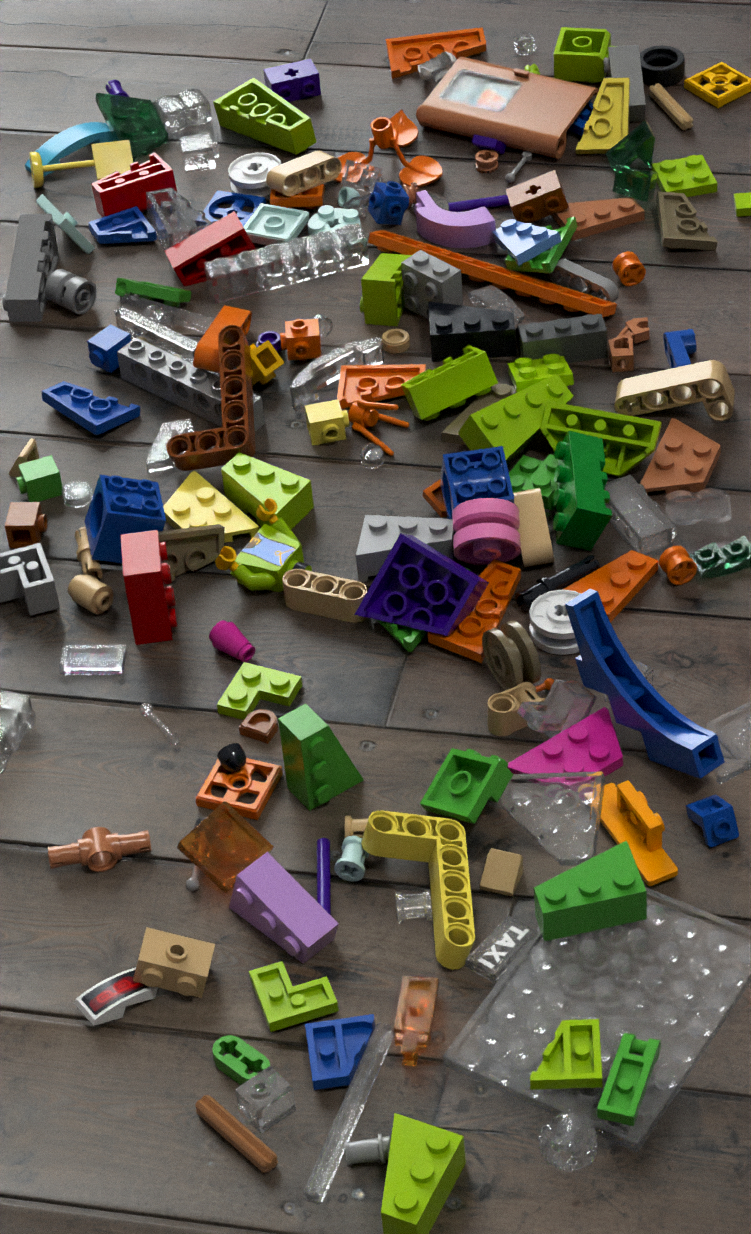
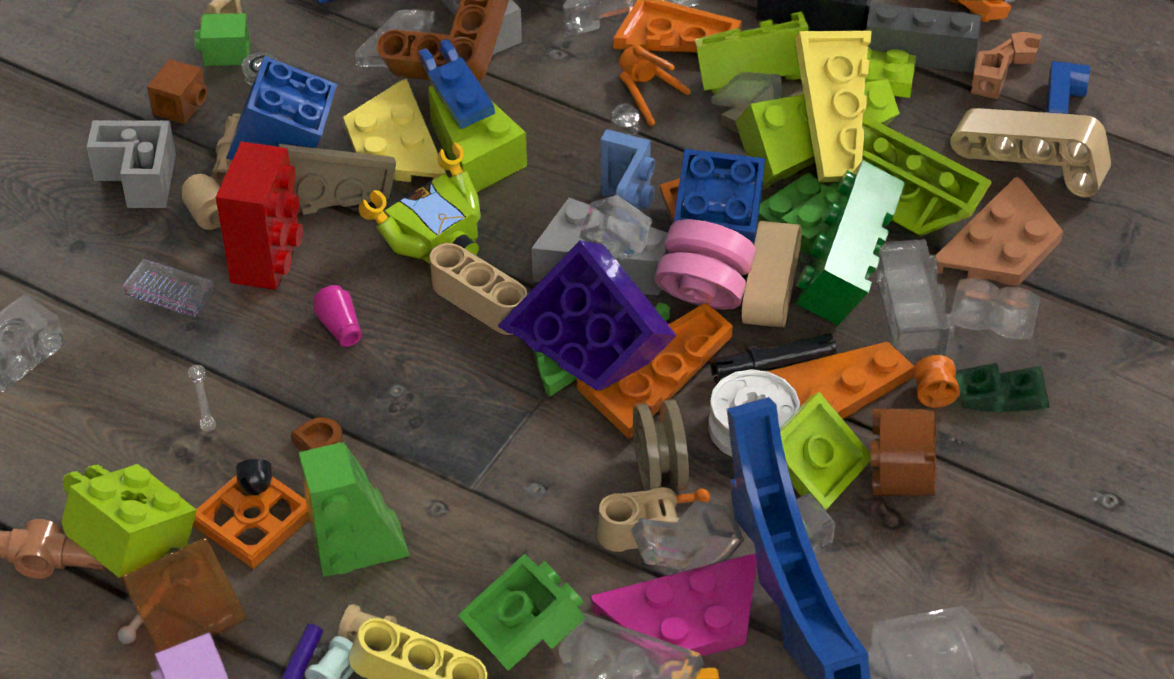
camera: 15 degrees right, 5 degrees up
(155, 807) = (124, 517): none -> lime hinge
(246, 460) = (457, 86): none -> blue hinge
(257, 683) = (339, 380): lime plate -> none
(326, 422) = (588, 61): light yellow brick -> none
(396, 486) = (627, 168): none -> medium blue bracket
(417, 519) = (617, 227): none -> clear brick
(459, 408) = (749, 89): none -> clear slope
(526, 390) = (833, 85): none -> light yellow wing
(629, 625) = (821, 451): none -> lime plate
(679, 613) = (904, 452): none -> dark orange brick

